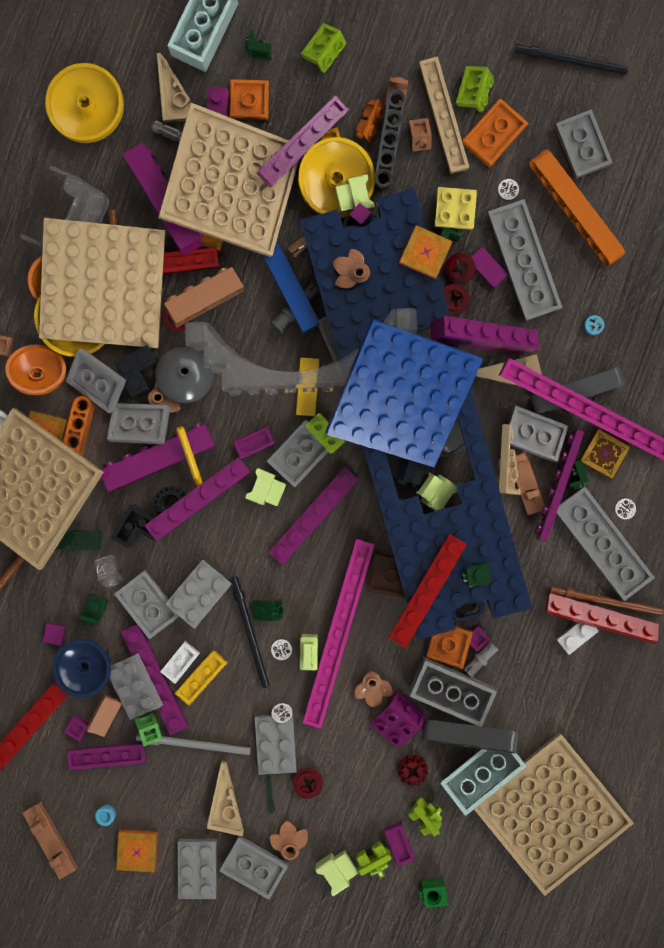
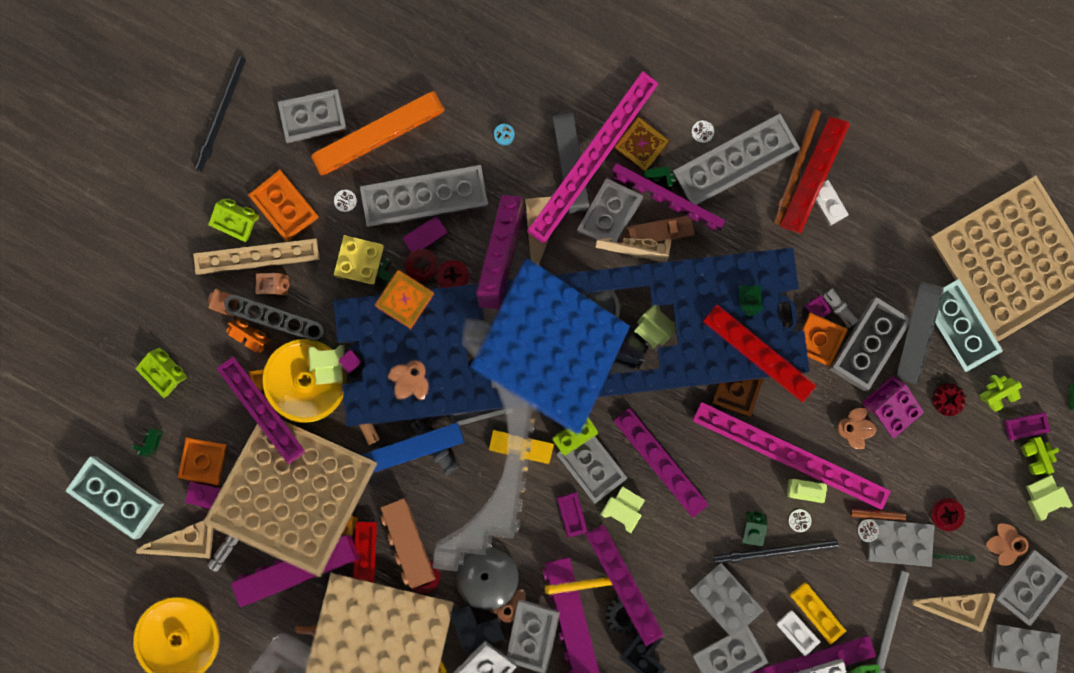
camera: 85 degrees left, 5 degrees down
(297, 717) = (879, 515): none -> dark orange piece

